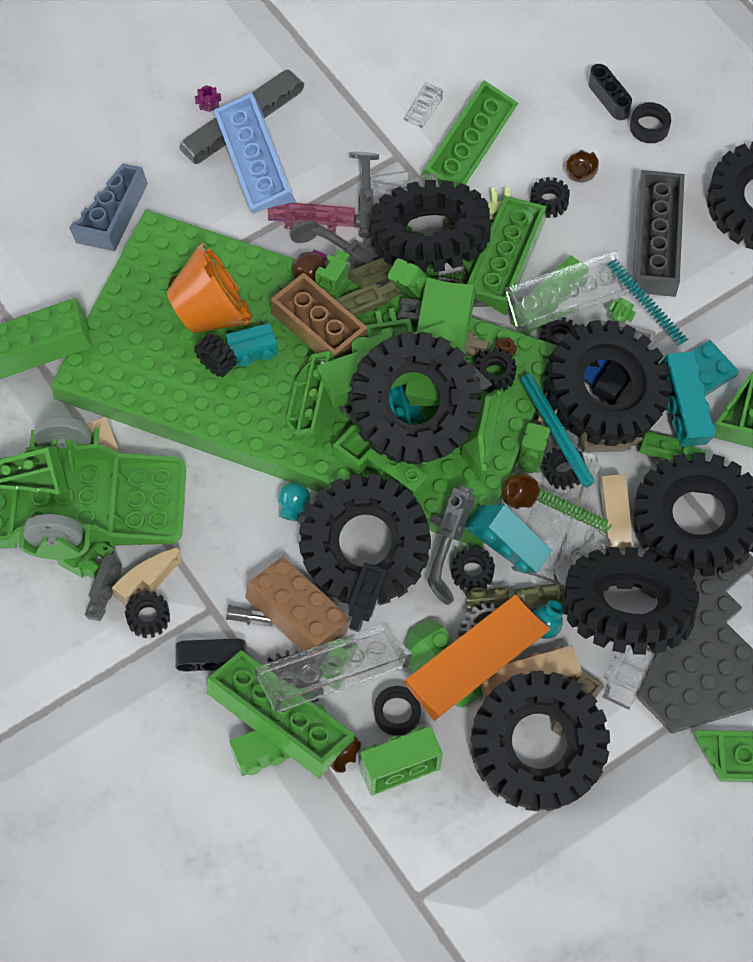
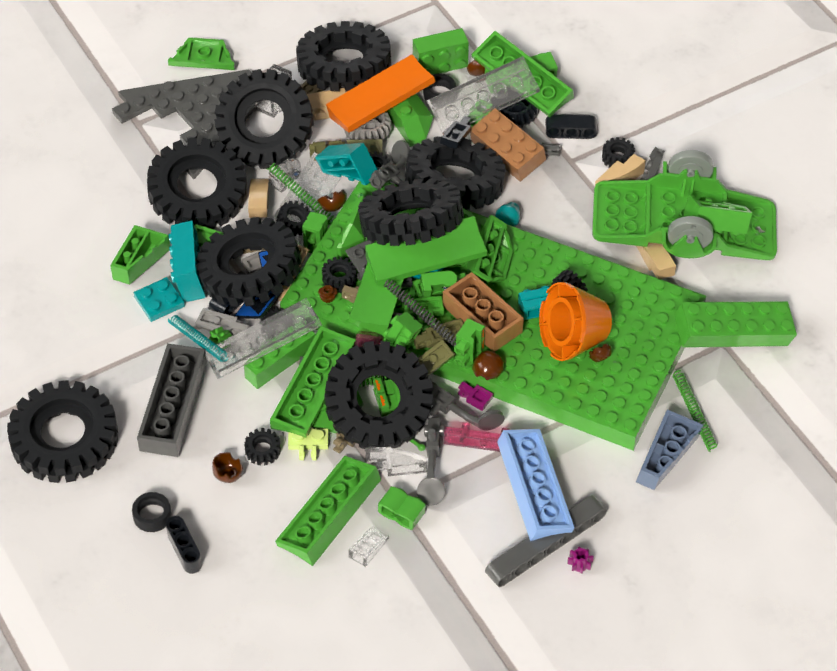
camera: 175 degrees left, 10 degrees down
(77, 263) = (692, 412): none -> bright green piece
(390, 301) = (421, 316): none -> dark grey piece
(393, 139) = (401, 508): none -> bright green brick
(551, 615) = (325, 128): teal piece -> none
(557, 430) = (297, 229): teal axle -> none

